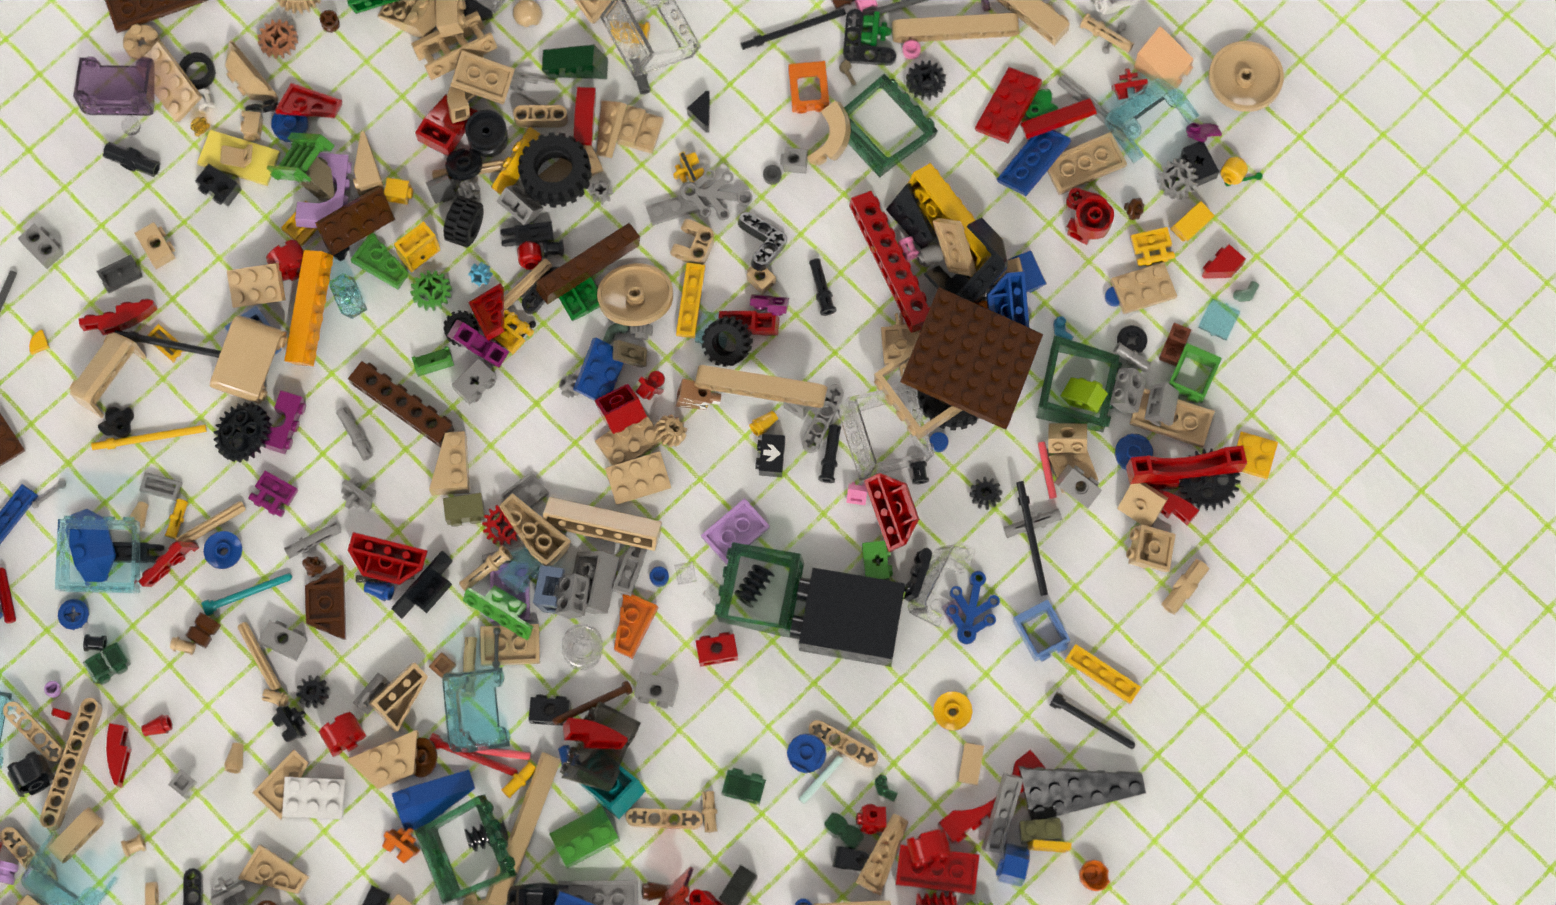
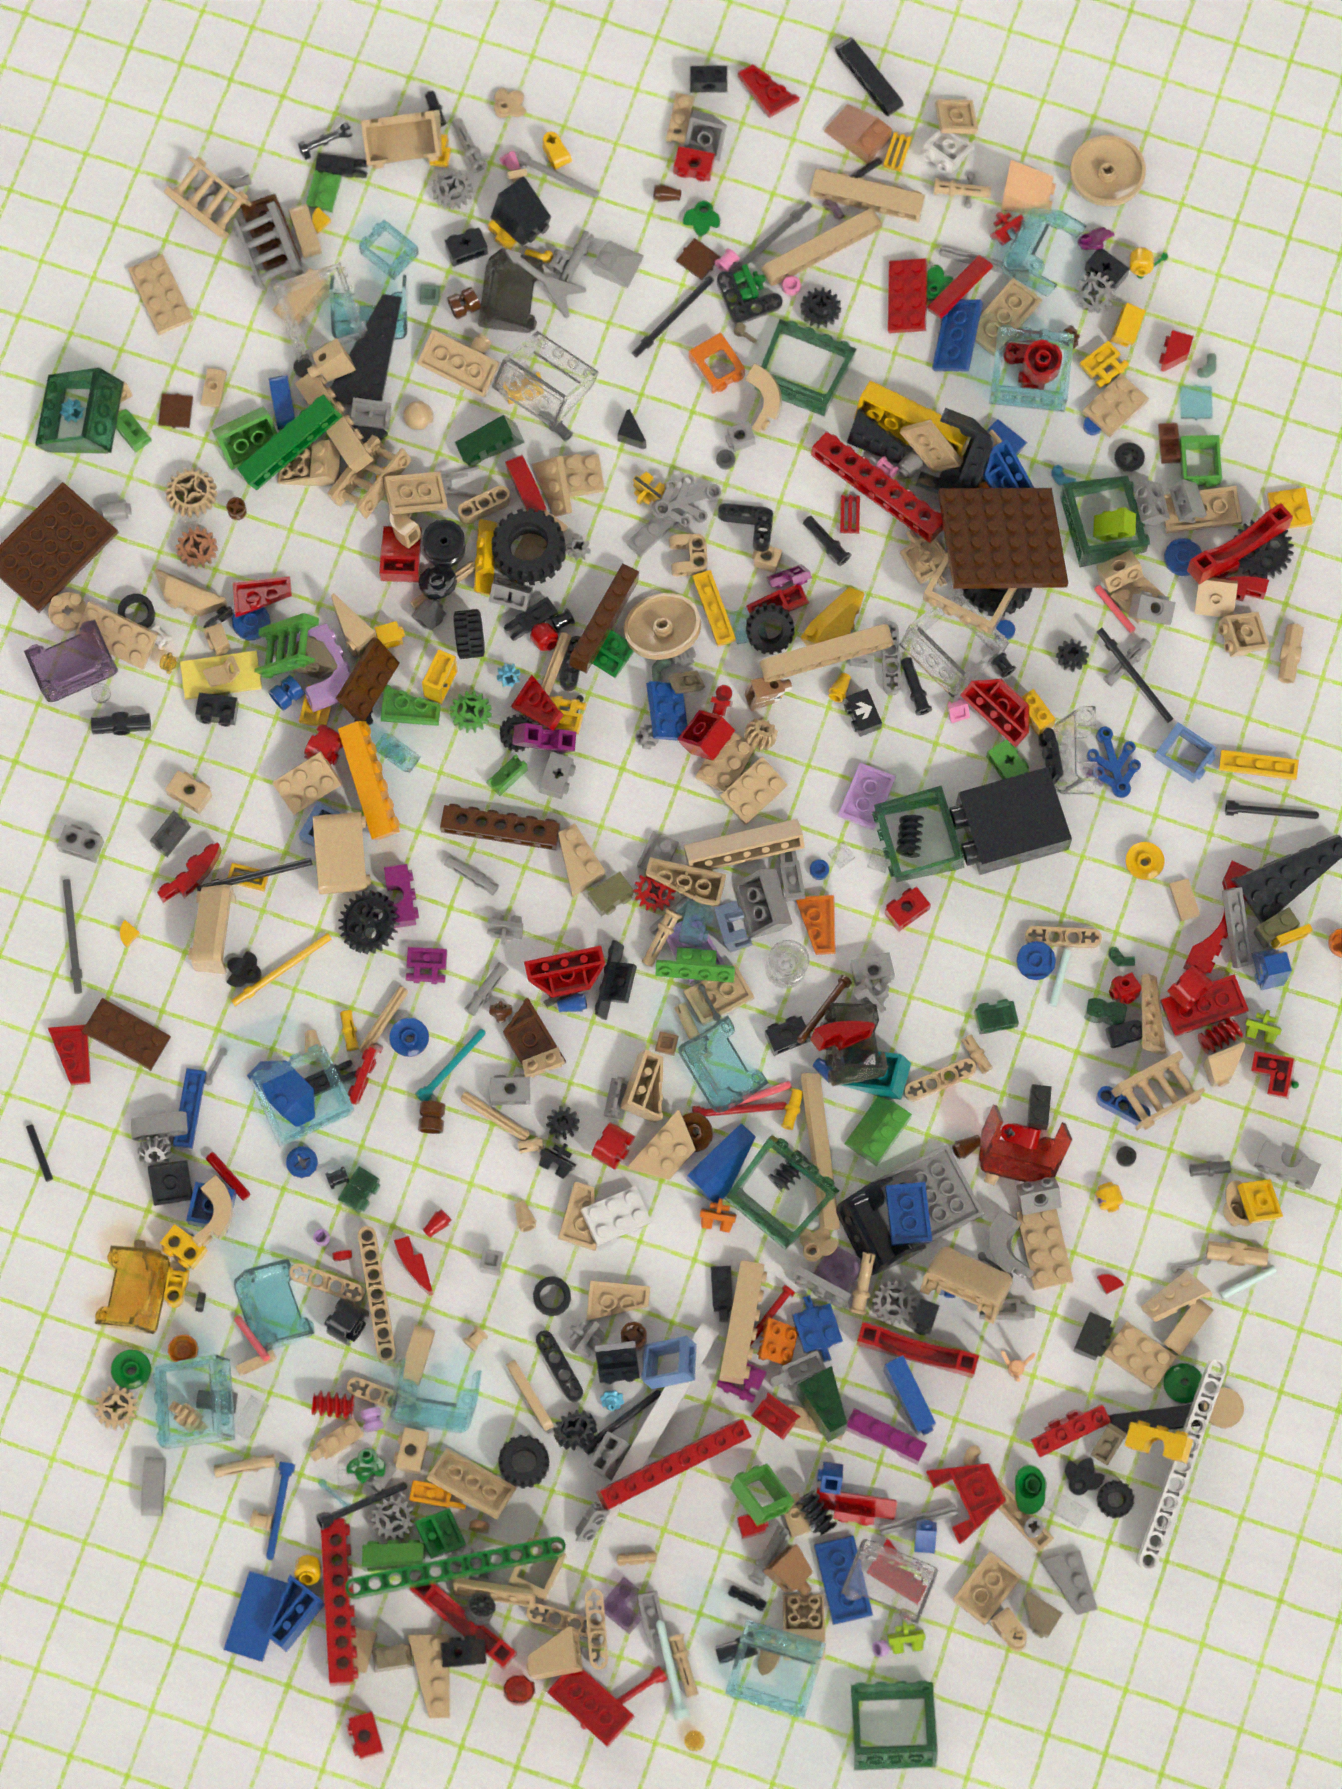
camera: 30 degrees left, 0 degrees up
(176, 490) = (317, 1009): light grey tile -> none
(182, 645) = (419, 1140): tan pin -> none
(235, 841) = (551, 1281): none -> black tyre
(283, 199) = (286, 692): none -> blue wheel
(322, 629) = (539, 1063): none -> tan hinge
(469, 190) = (455, 603): light grey gear -> none
(572, 596) = (755, 920): light grey brick -> none
(643, 710) = (875, 993): none -> light grey hips
(791, 360) = (835, 619): none -> yellow wedge
(862, 261) = (850, 499): none -> red tile
(925, 529) = (1039, 714): none -> yellow brick
(1064, 242) = (1027, 396): none -> clear light blue windscreen
(1132, 357) = (1138, 472): light grey pin -> none

